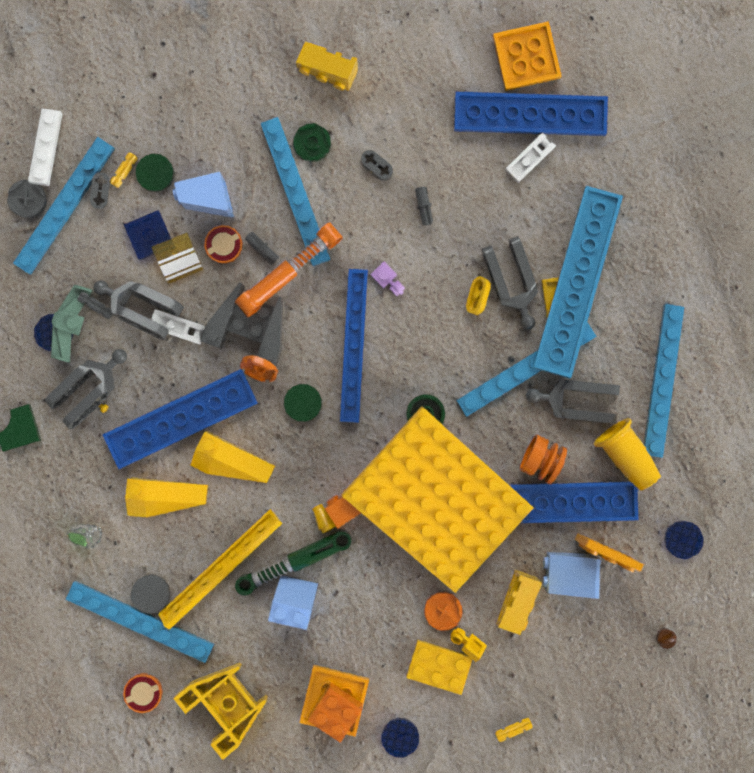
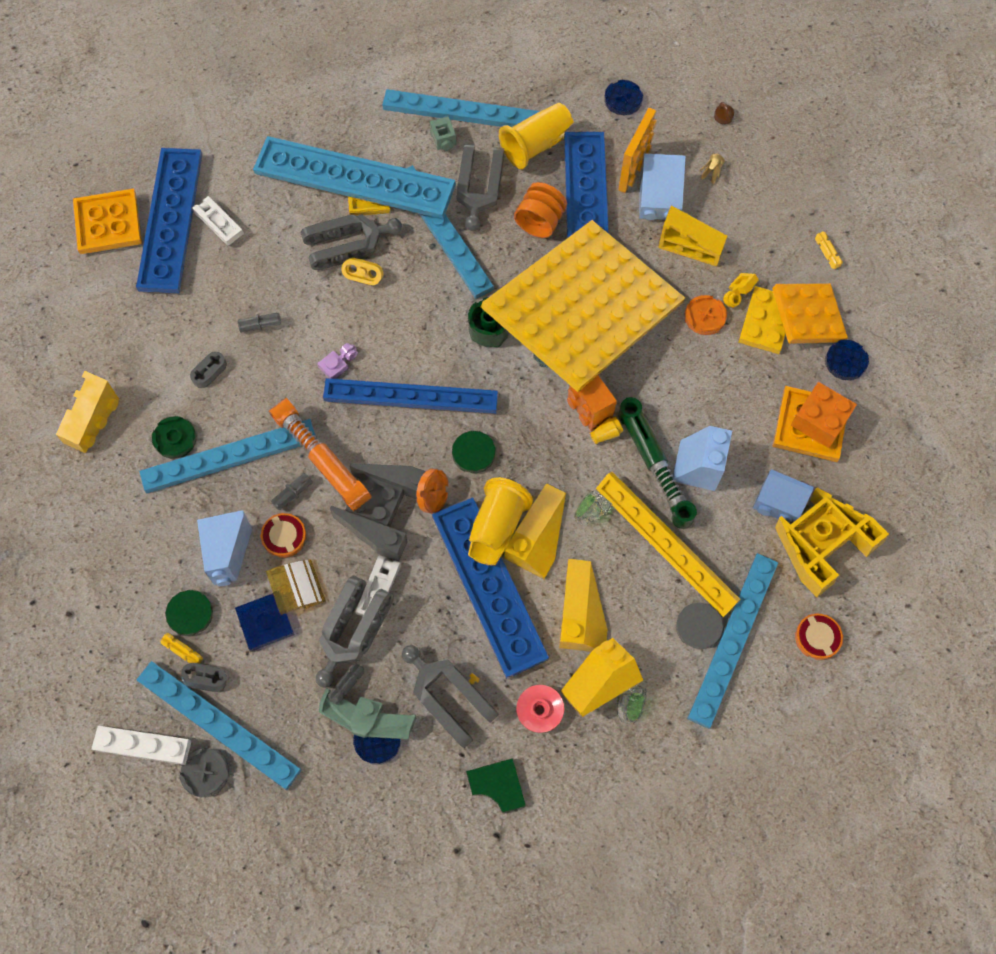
camera: 85 degrees left, 20 degrees down
(68, 462) = (540, 696): none -> coral dish
(98, 511) = (601, 677): none -> yellow slope
(229, 424) = (497, 519): none -> yellow piece
(249, 505) = (592, 508): none -> clear rock
(258, 669) = (782, 497): none -> medium blue slope
(443, 707) = (809, 313): none -> light orange plate
(604, 626) = (715, 163): none -> pearl gold piece
(638, 364) = (445, 137): none -> sand green brick

